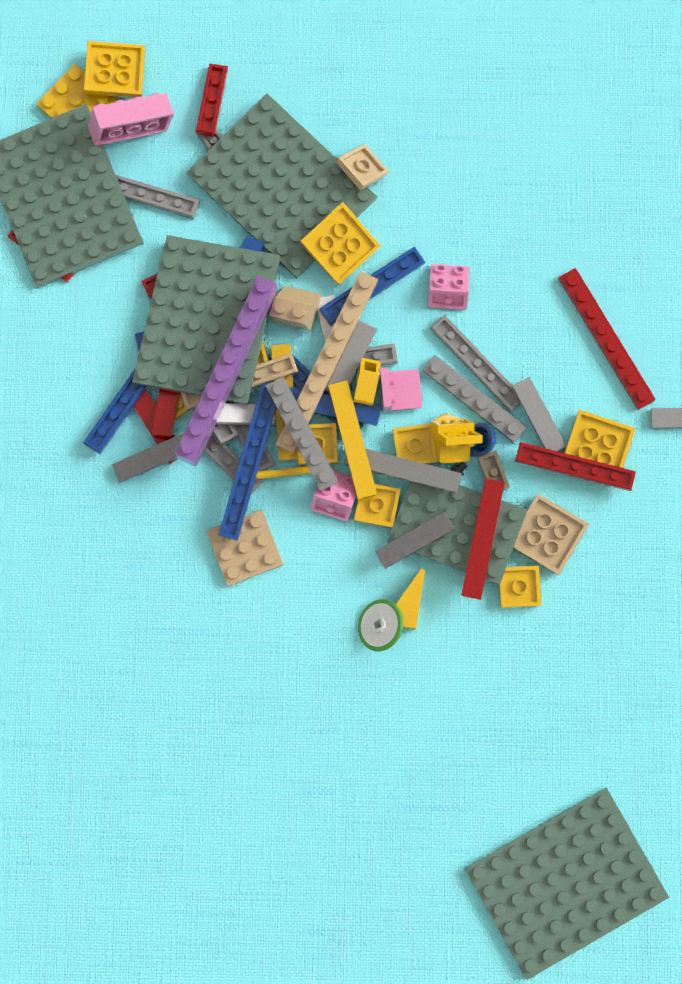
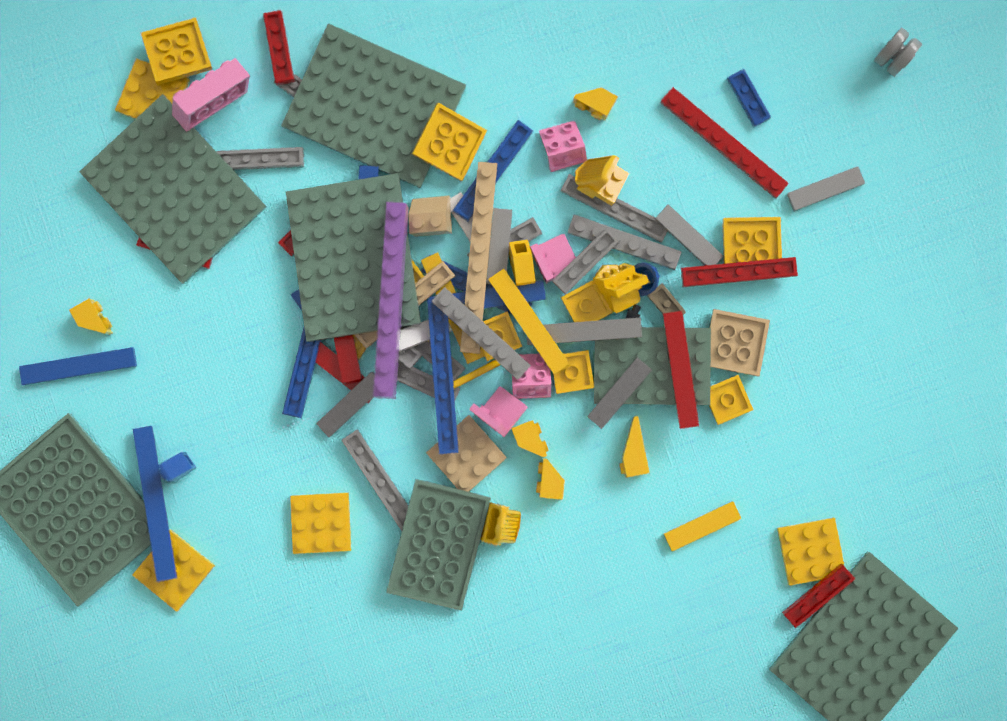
camera: 25 degrees left, 5 degrees up
(80, 561) = (320, 523): none -> yellow plate
(152, 544) = (377, 476): none -> light grey plate
(184, 623) = (438, 544): none -> sand green plate
(251, 625) = (500, 525): none -> yellow piece
(293, 516) = (500, 411): none -> bright pink bracket
(310, 553) = (528, 438): none -> yellow slope
(317, 604) = (551, 481): none -> yellow slope
(362, 166) = (443, 62): tan plate -> none
(391, 620) = (626, 475): white wheel -> none
(429, 402) = (585, 261): none -> light grey tile
(450, 701) = (702, 526): none -> yellow tile
(473, 329) = (601, 178): none -> yellow piece
(496, 256) = (596, 101): none -> yellow slope
(540, 812) = (818, 595): none -> red tile
(549, 766) = (810, 550): none -> yellow plate
(646, 304) = (748, 98): none -> blue tile

